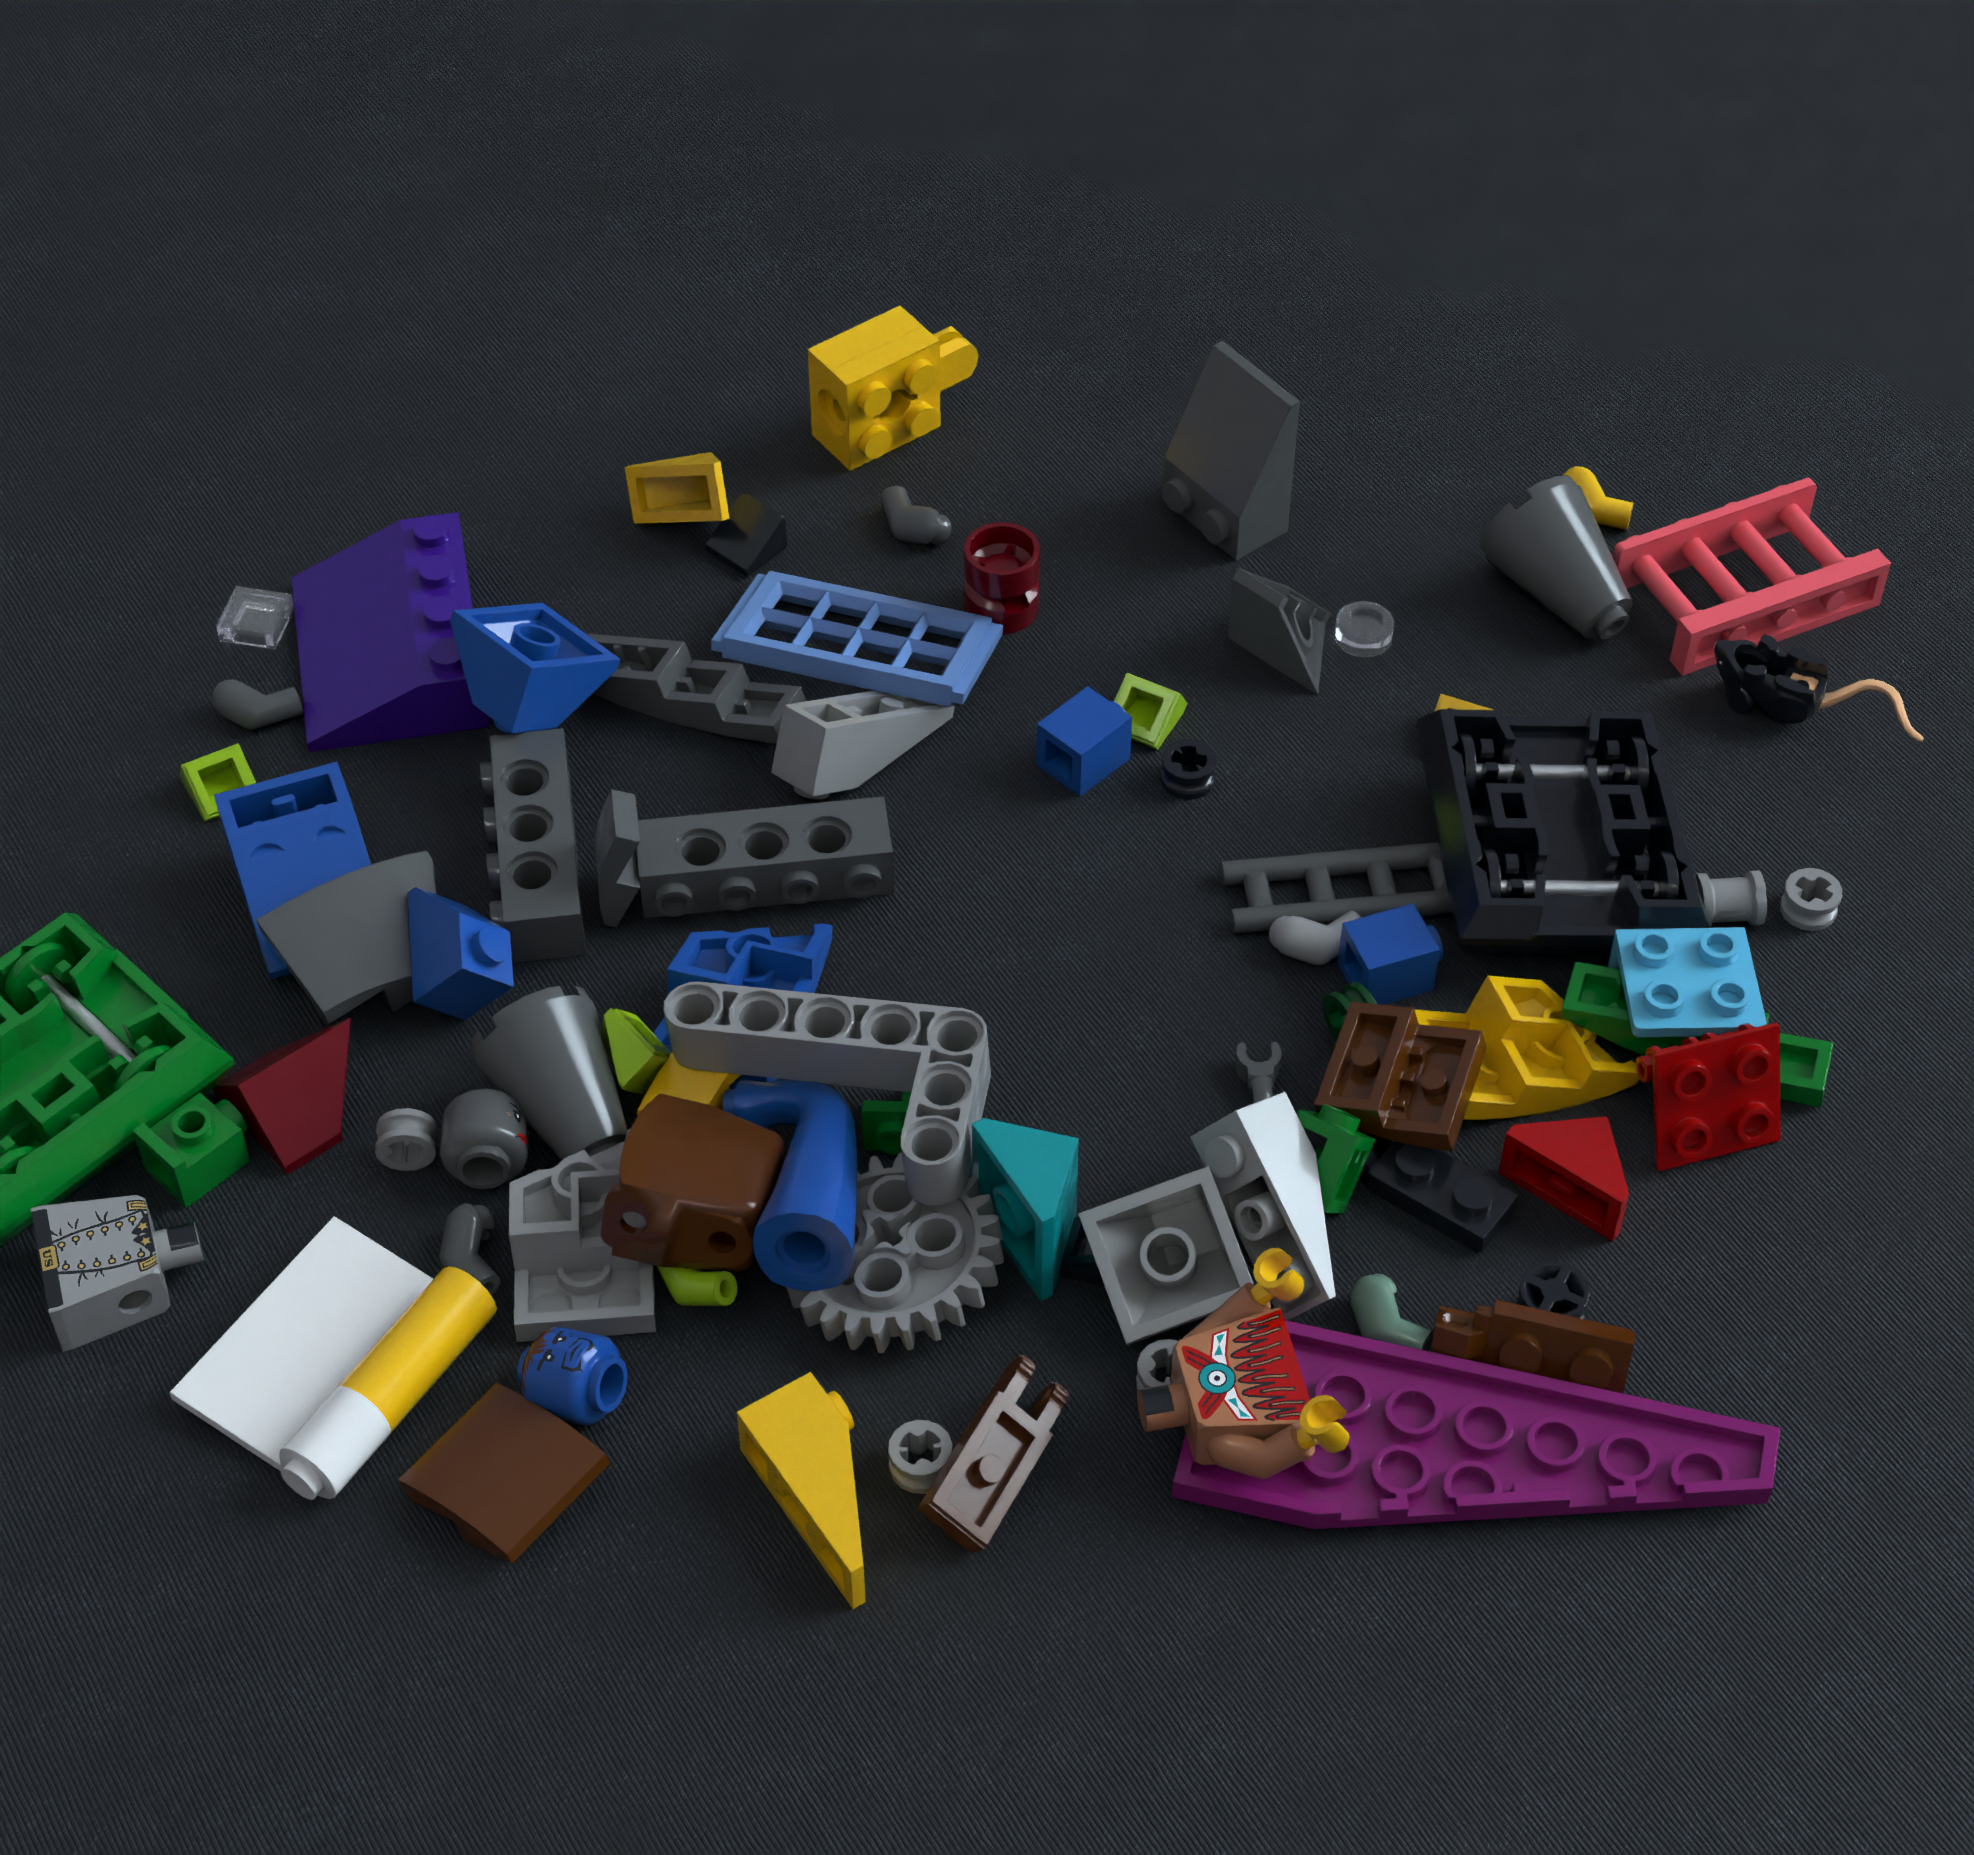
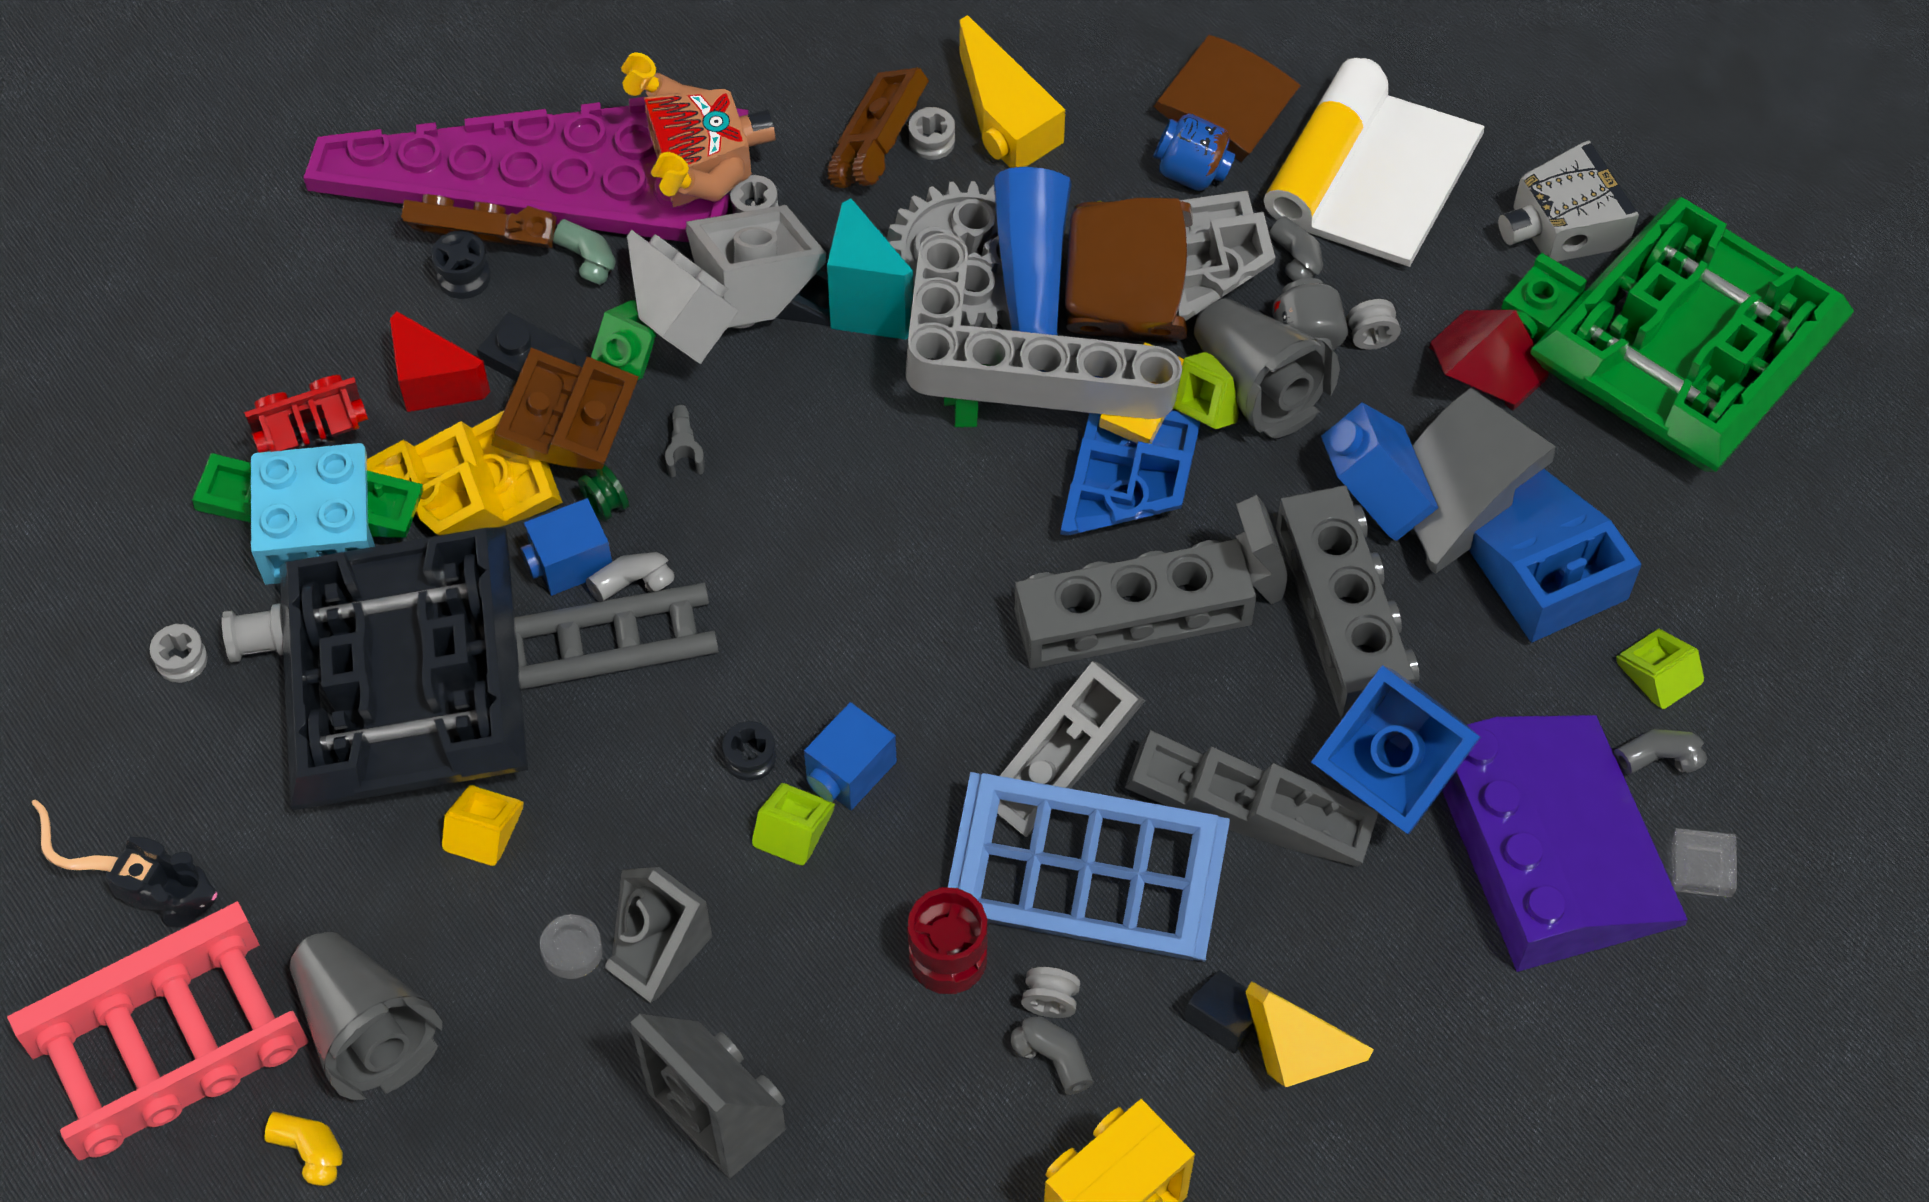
camera: 175 degrees right, 10 degrees up
(909, 550) = (1051, 992): none -> light grey bush

